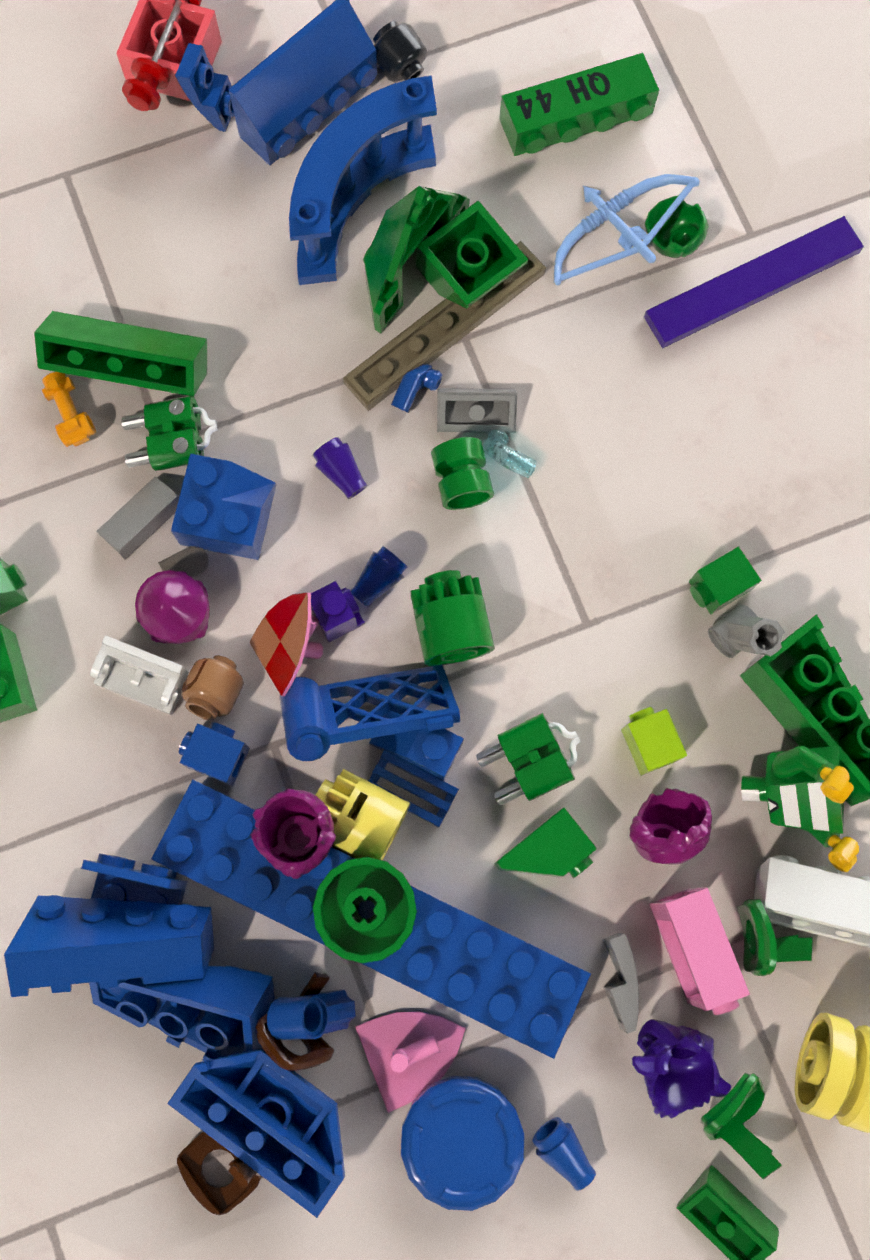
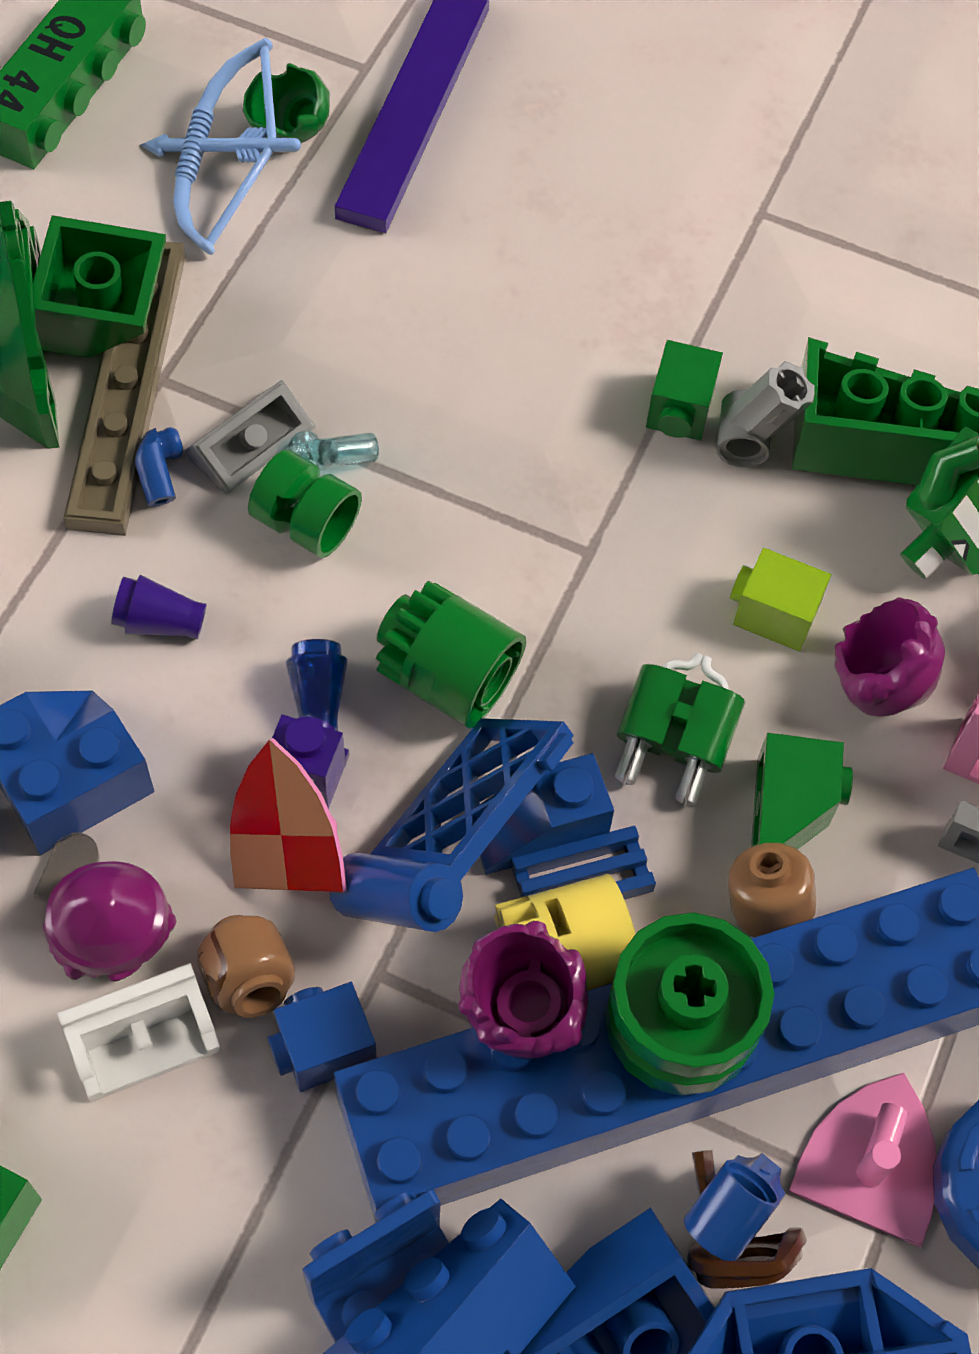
camera: 45 degrees left, 15 degrees down
(485, 886) = (771, 892): none -> medium nougat head

